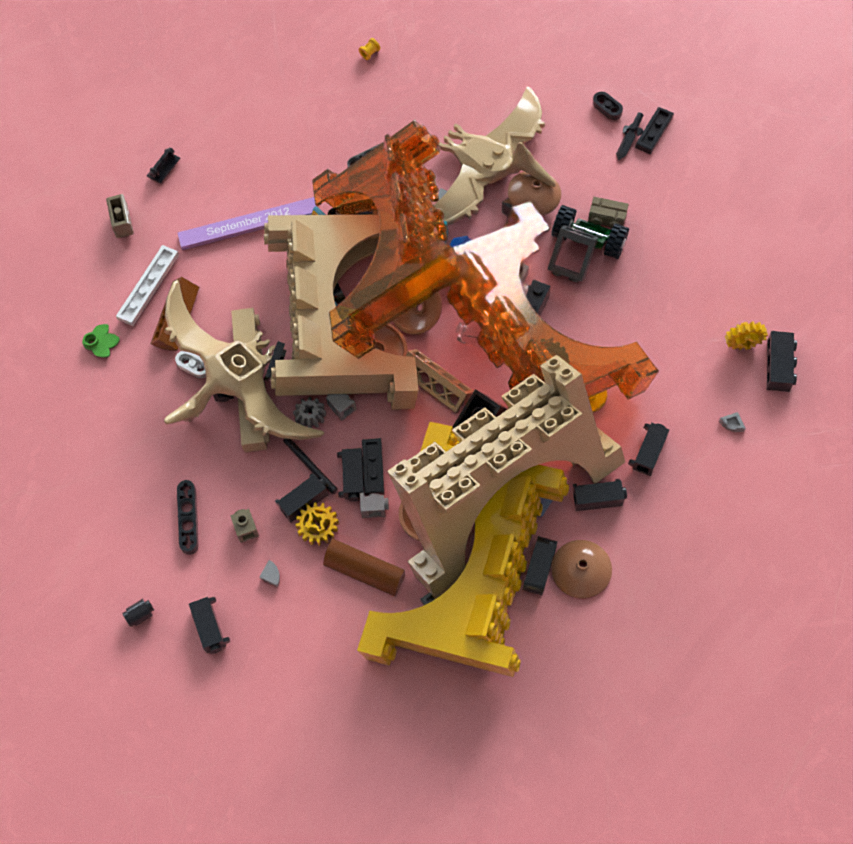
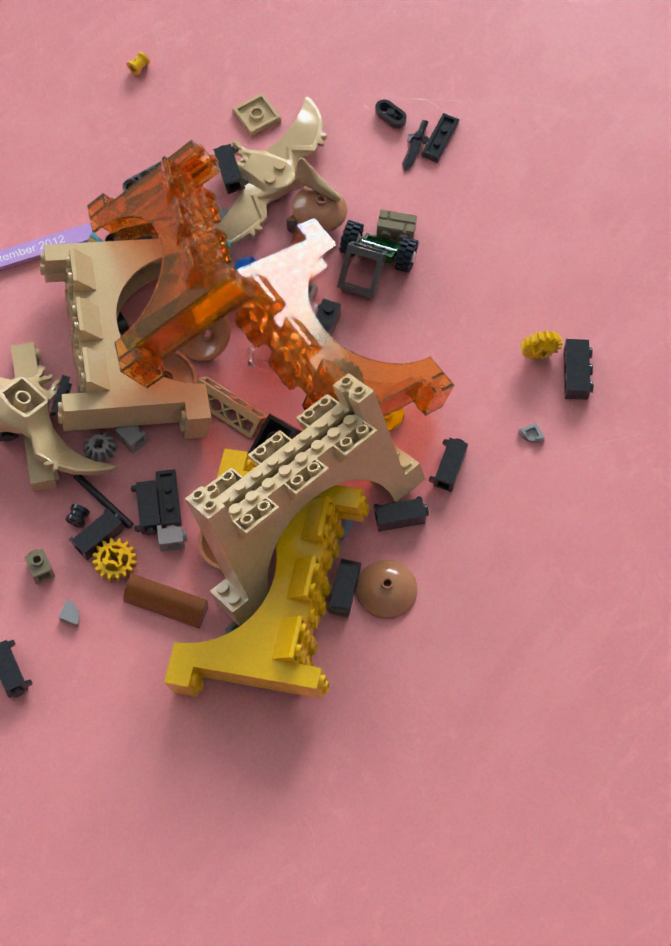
camera: 10 degrees left, 0 degrees up
(284, 478) = (77, 515): none -> black wheel
(450, 151) = (229, 168): none -> black brick
(478, 101) = (256, 114): none -> tan tile

